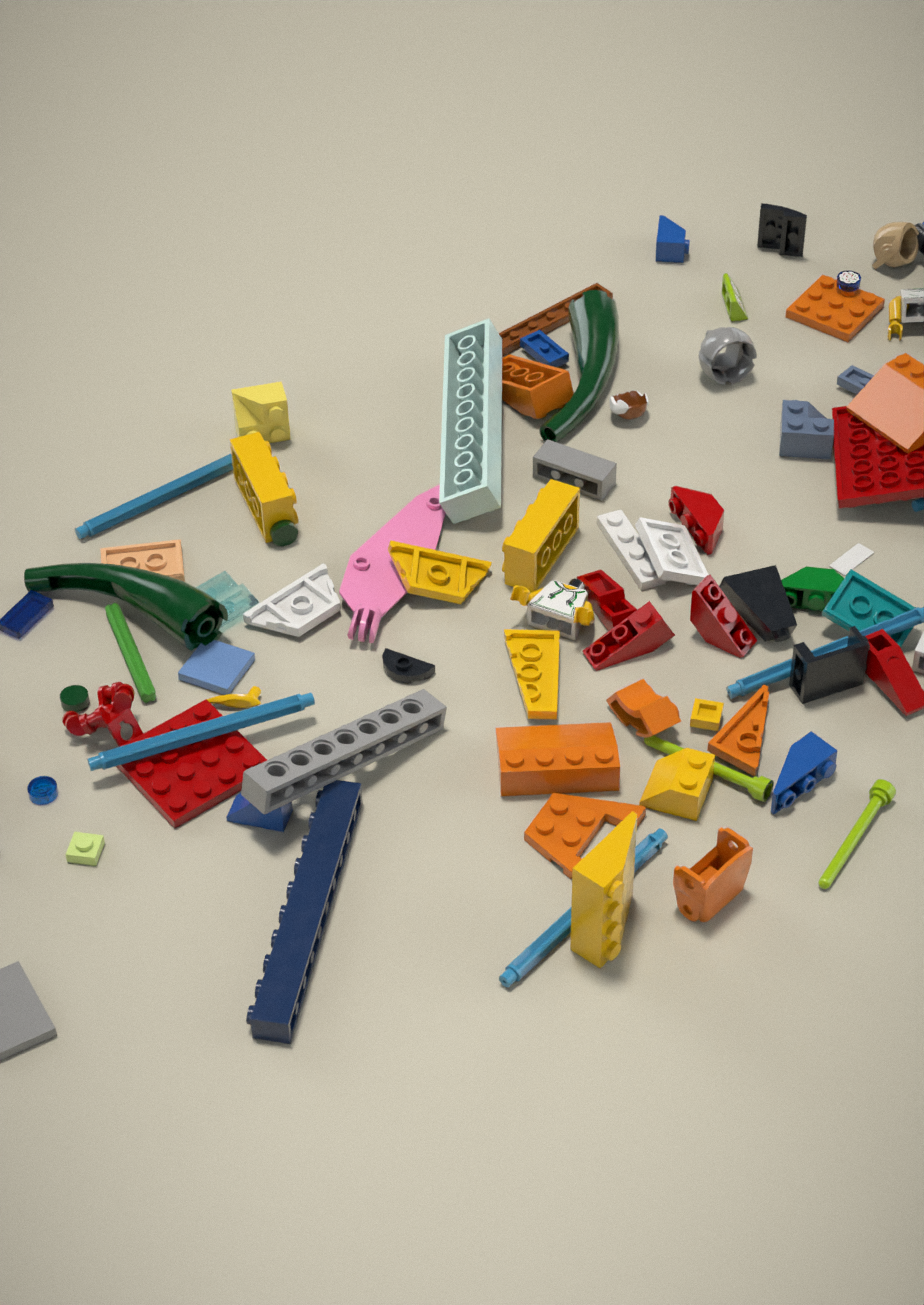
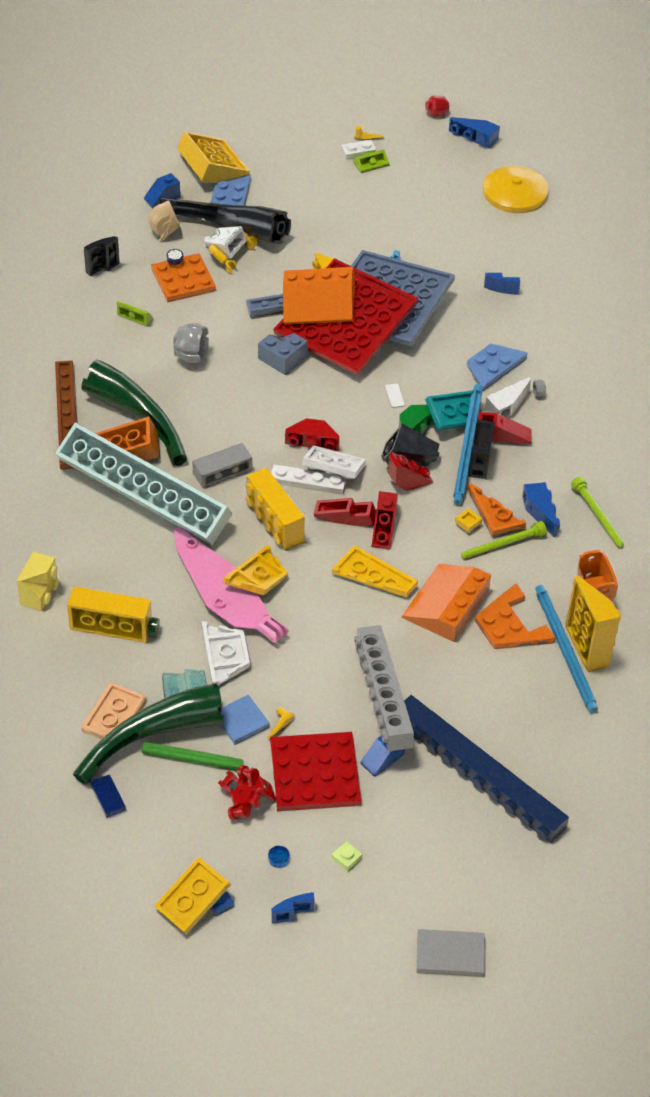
camera: 60 degrees left, 5 degrees up
(74, 698) = (210, 804): dark green tile -> none
(155, 497) = (55, 668): dark azure piece -> none
(200, 731) = (305, 751): dark azure piece -> none
(405, 668) = (318, 631): black plate -> none
(544, 349) = (97, 418): blue plate -> none
(557, 607) = (337, 534): white torso -> none
(629, 404) = (187, 409): dark orange hair -> none
(643, 709) = (447, 543): orange brick -> none
(671, 241) = (51, 307): blue slope -> none
(680, 783) = (511, 559): yellow slope -> none

